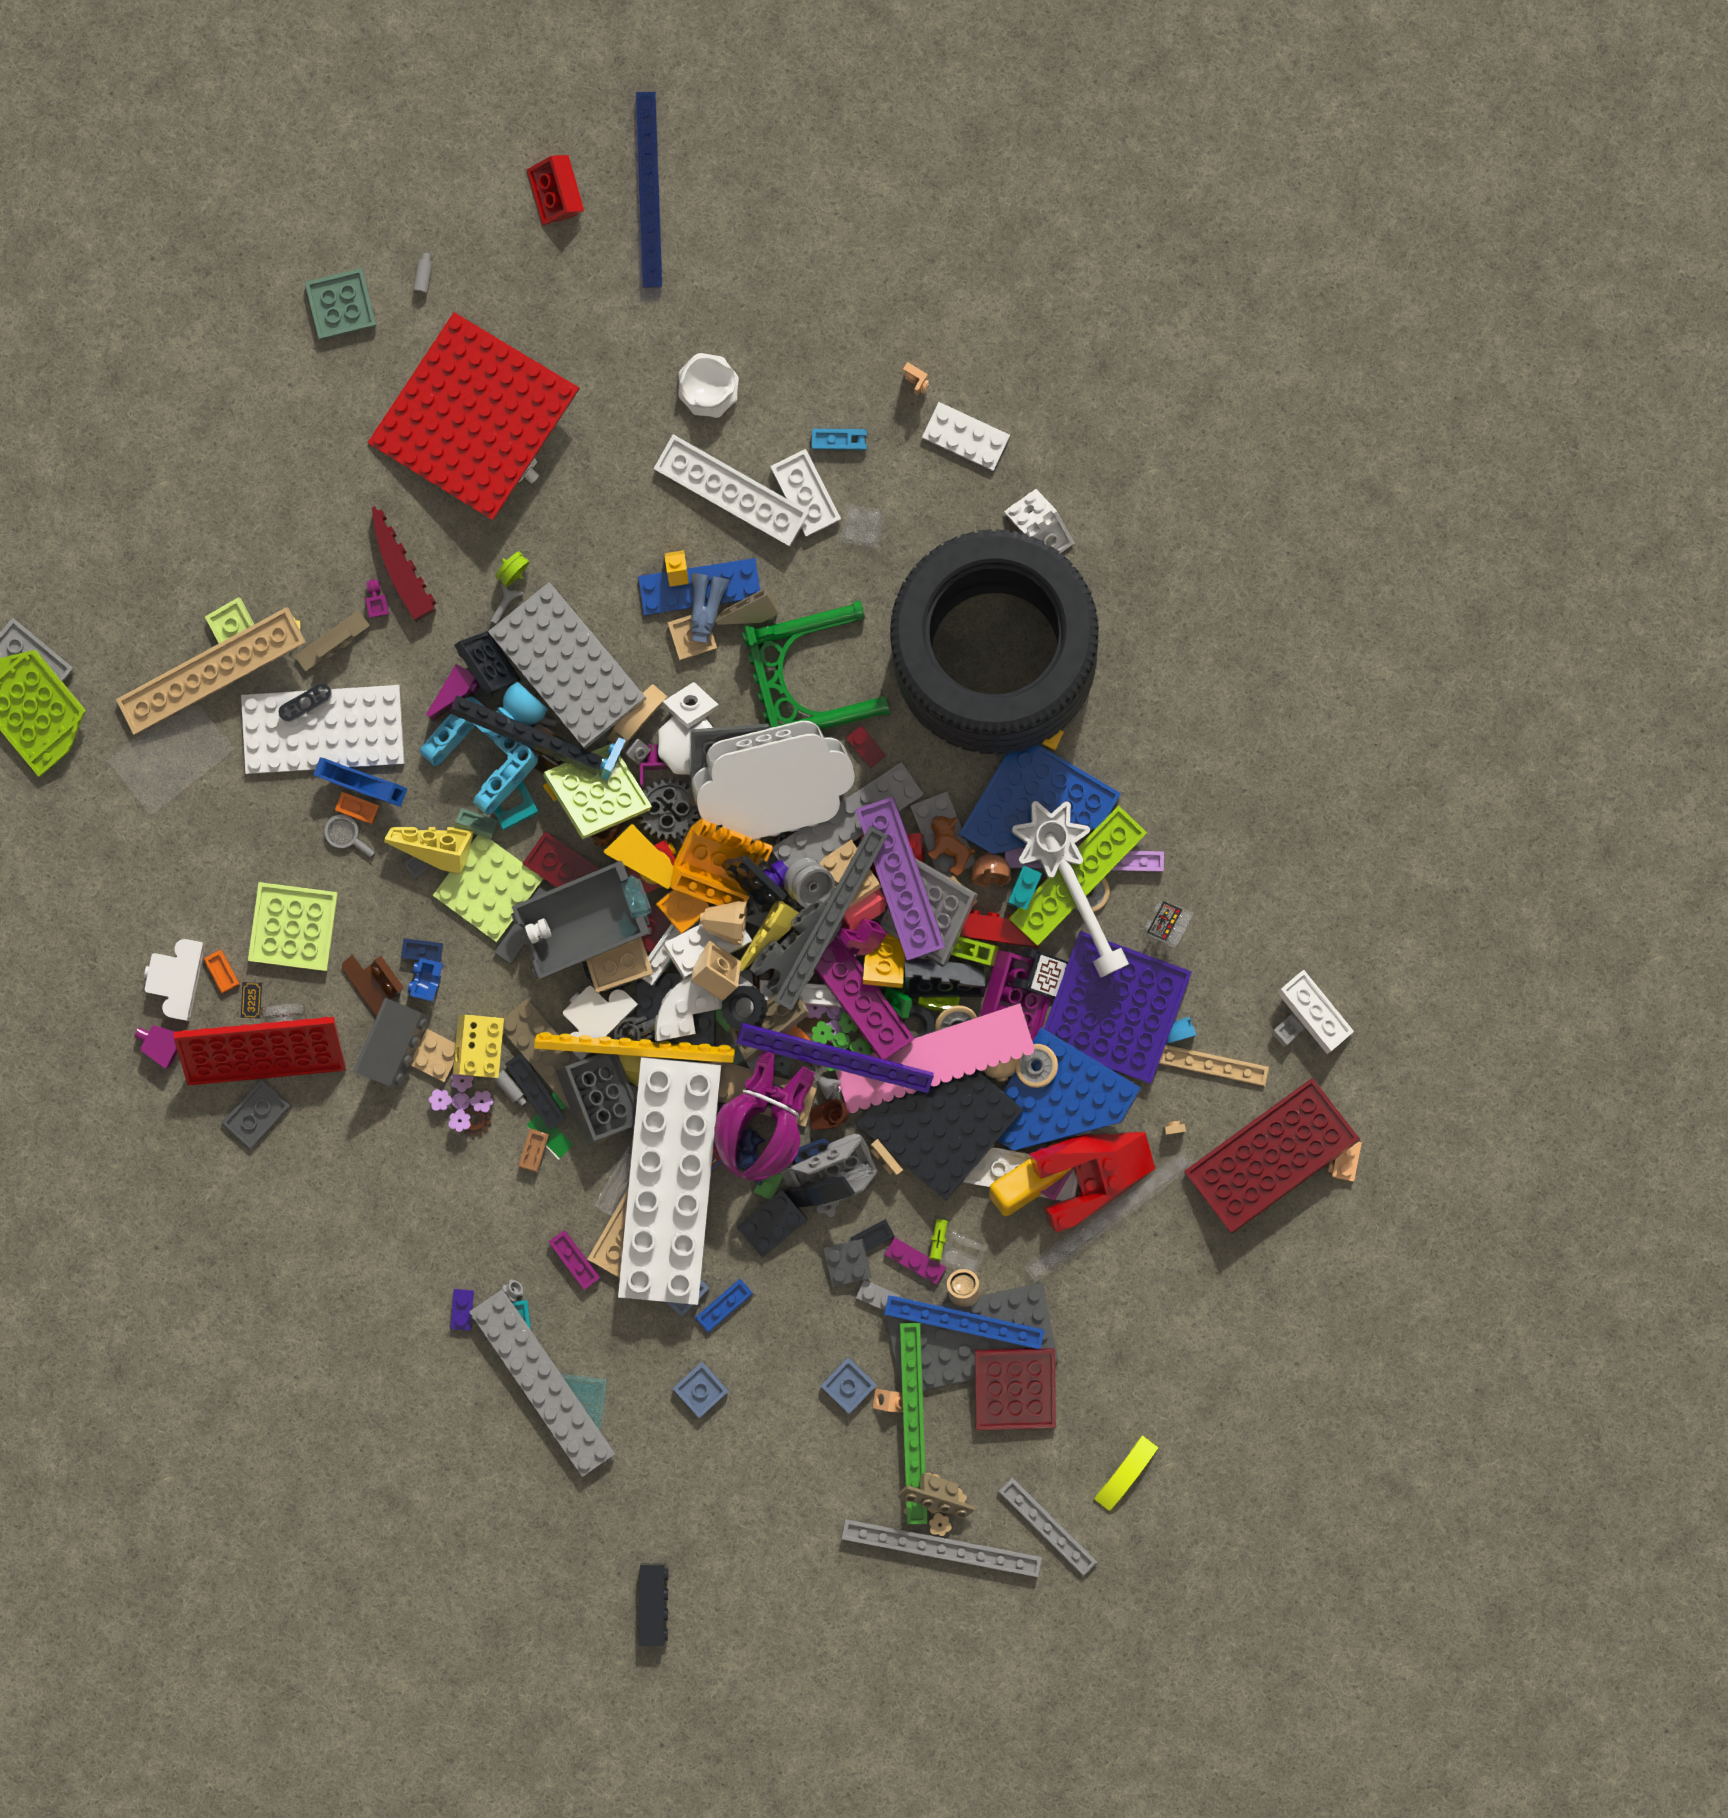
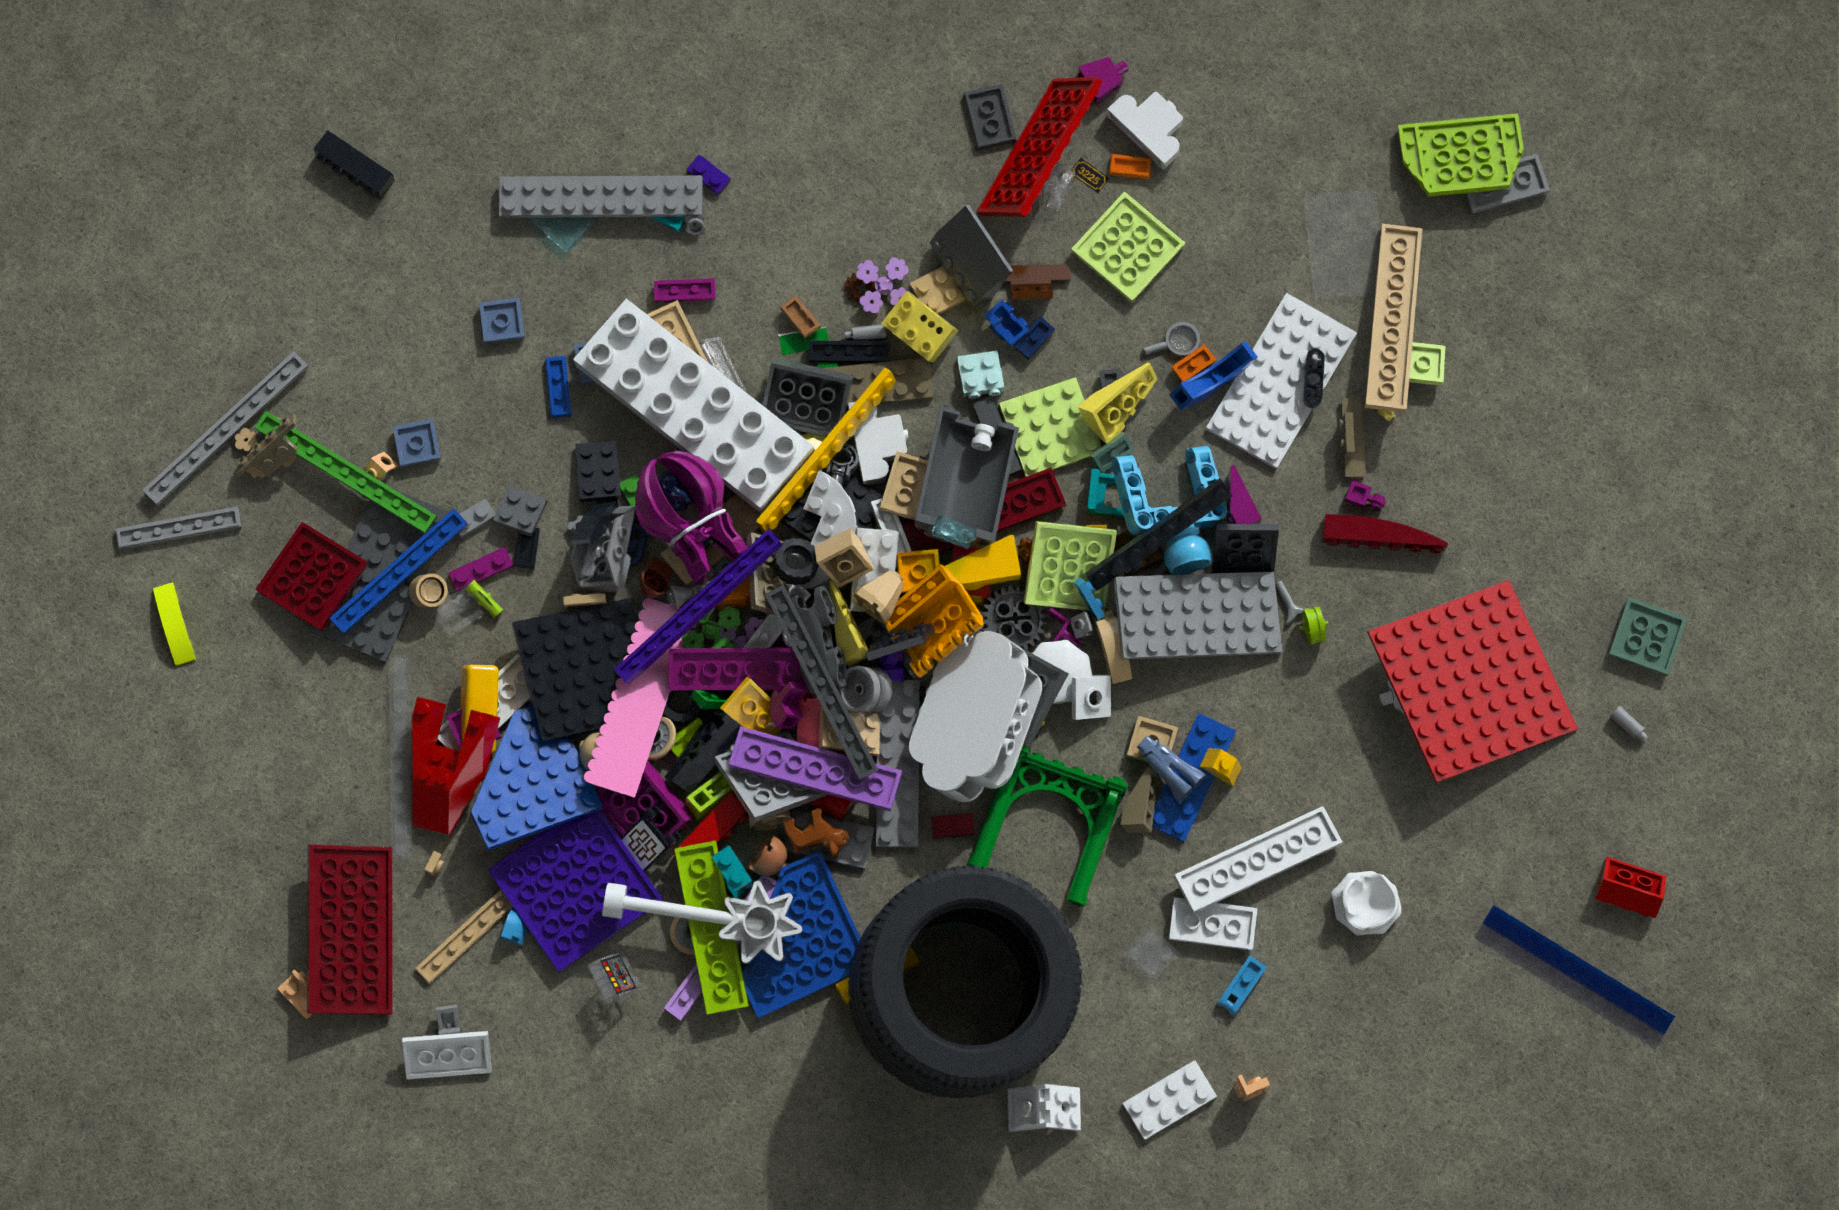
camera: 125 degrees right, 10 degrees down
(482, 973) = (980, 374): none -> light aqua plate
(1045, 1074) = (561, 785): wheel -> none

